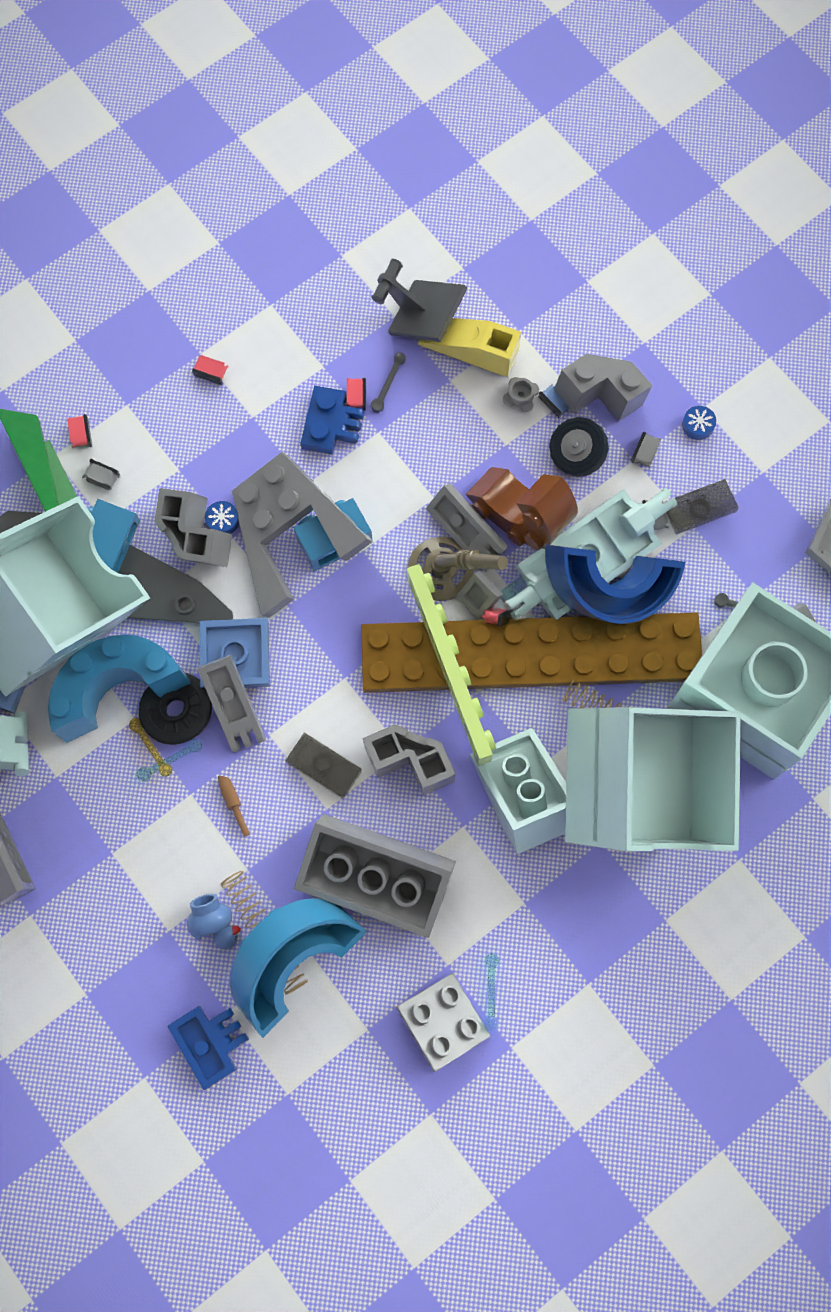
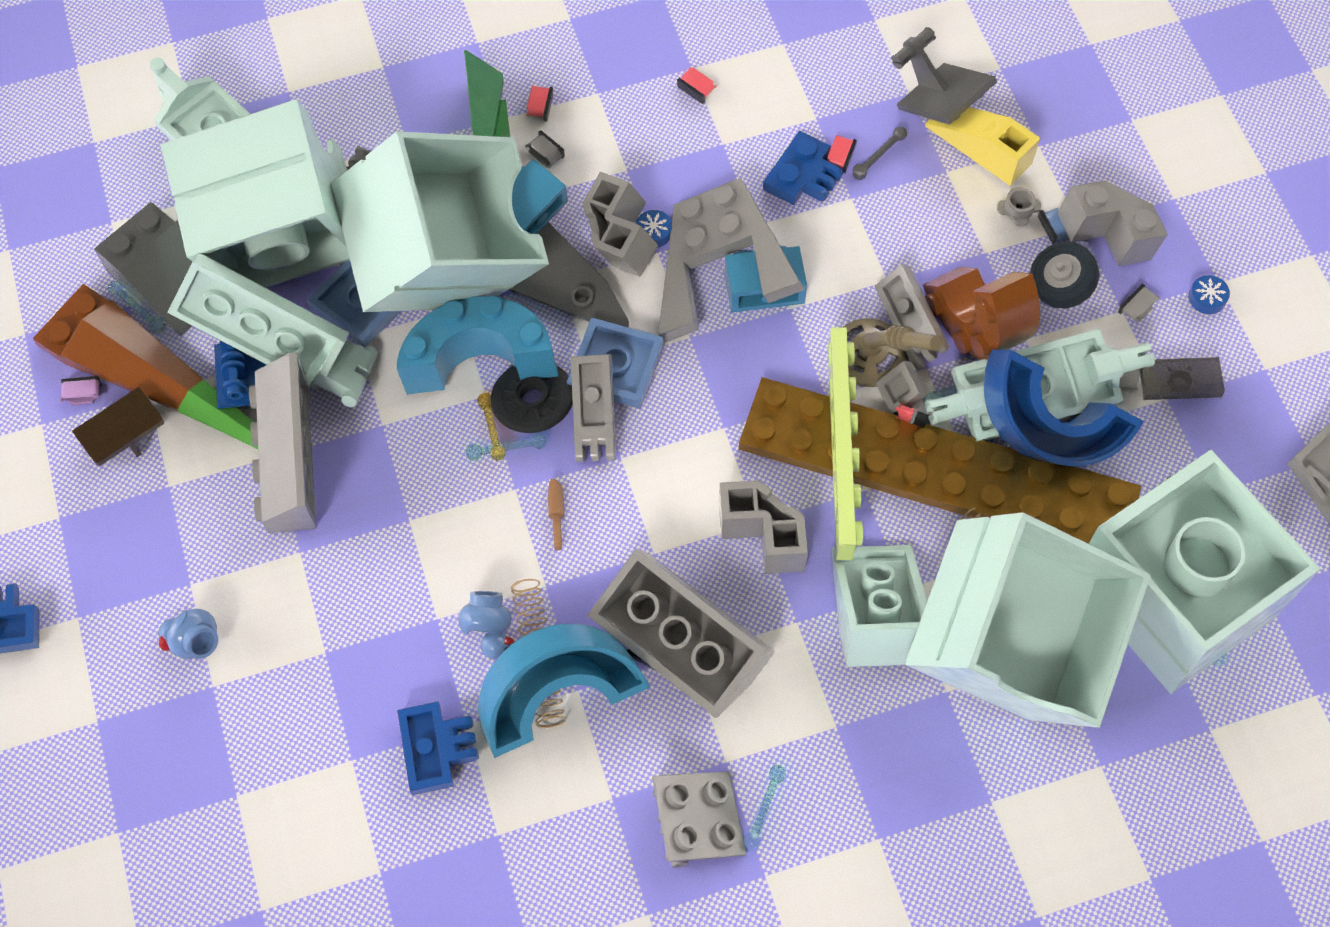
camera: 20 degrees right, 10 degrees down
(323, 765) = (667, 507): clear smoke plate -> none

